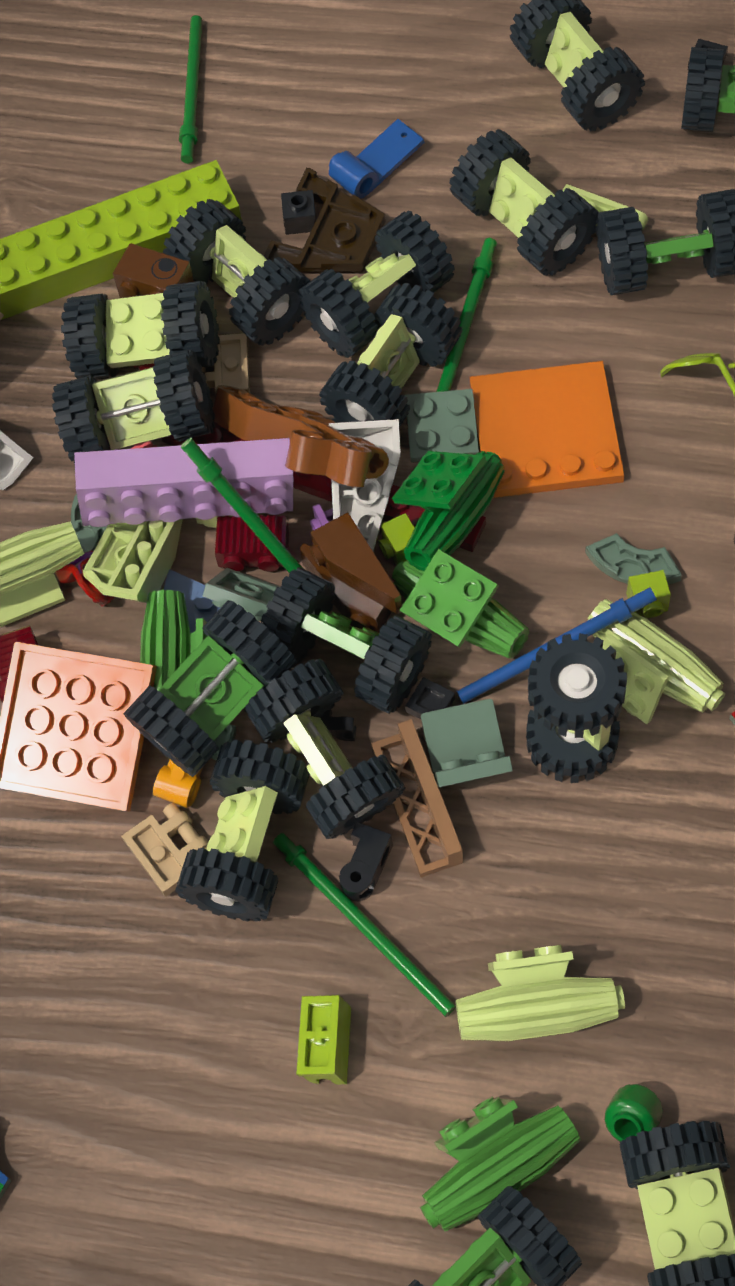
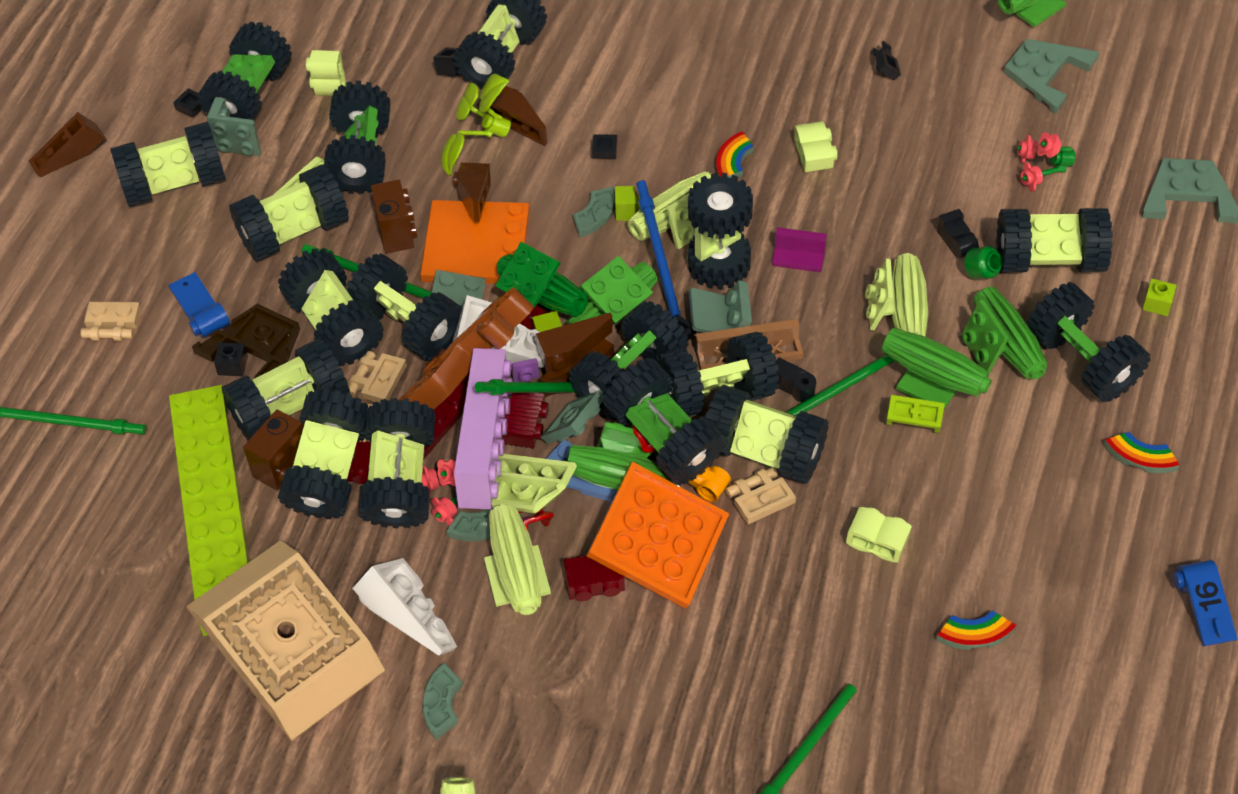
camera: 85 degrees left, 10 degrees down
(116, 1010) = (878, 534): none -> yellowish green brick
(295, 375) = (382, 380): none -> tan plate
(350, 81) = (111, 320): none -> tan plate
(399, 1054) = (933, 369): none -> bright green plate
(547, 316) = (394, 216): none -> reddish brown brick
(610, 844) = (799, 249): none -> magenta panel
(625, 399) = (473, 187): none -> reddish brown slope
(661, 100) = (232, 133): none -> sand green bracket
(691, 1073) = (956, 233): none -> black leg

